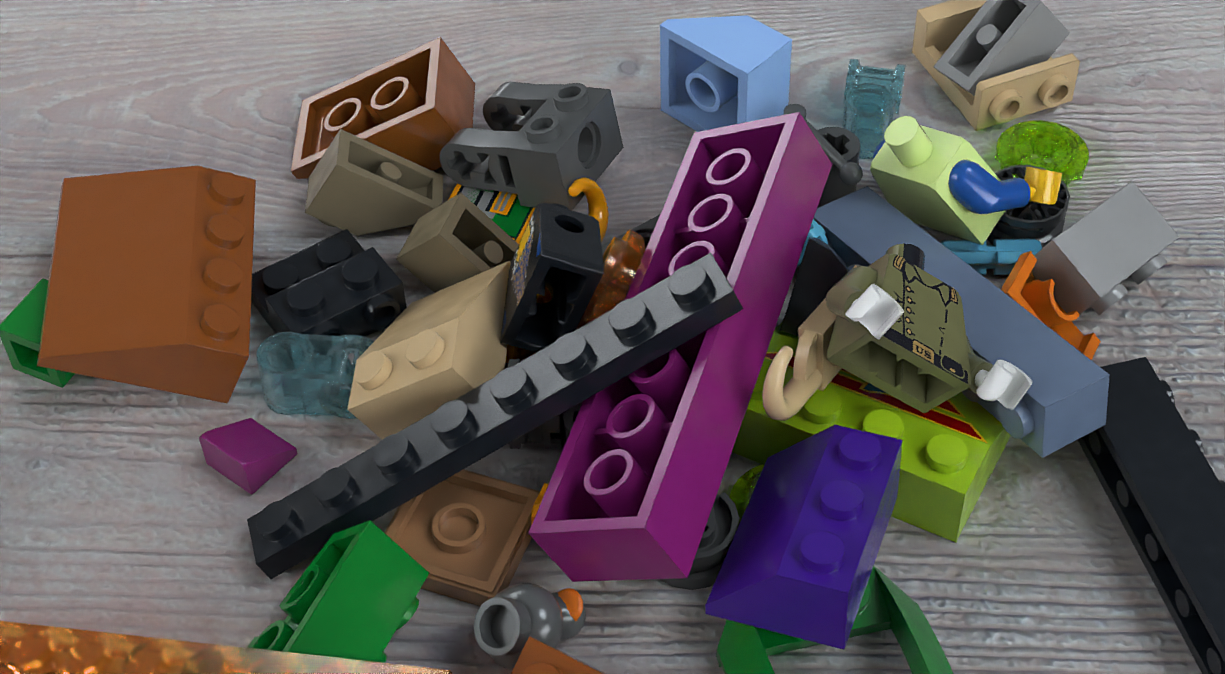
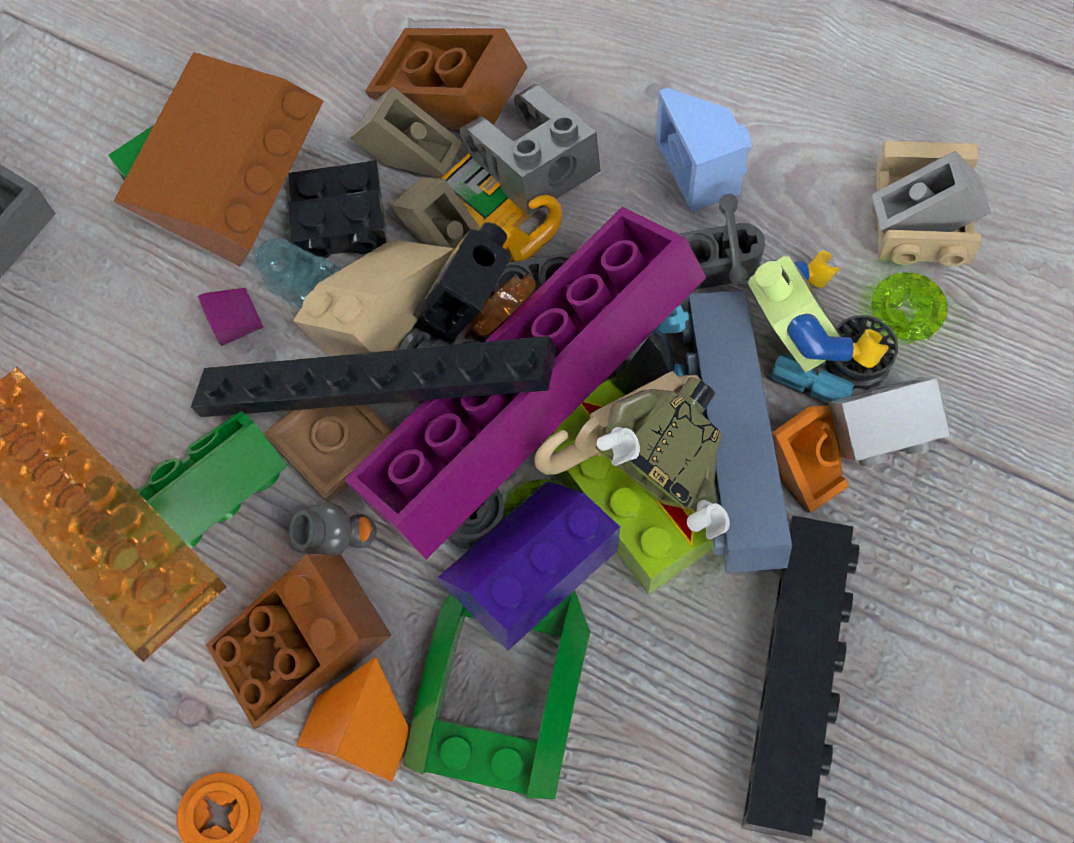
camera: 30 degrees right, 20 degrees up
(871, 102) = (807, 202): clear light blue piece -> none

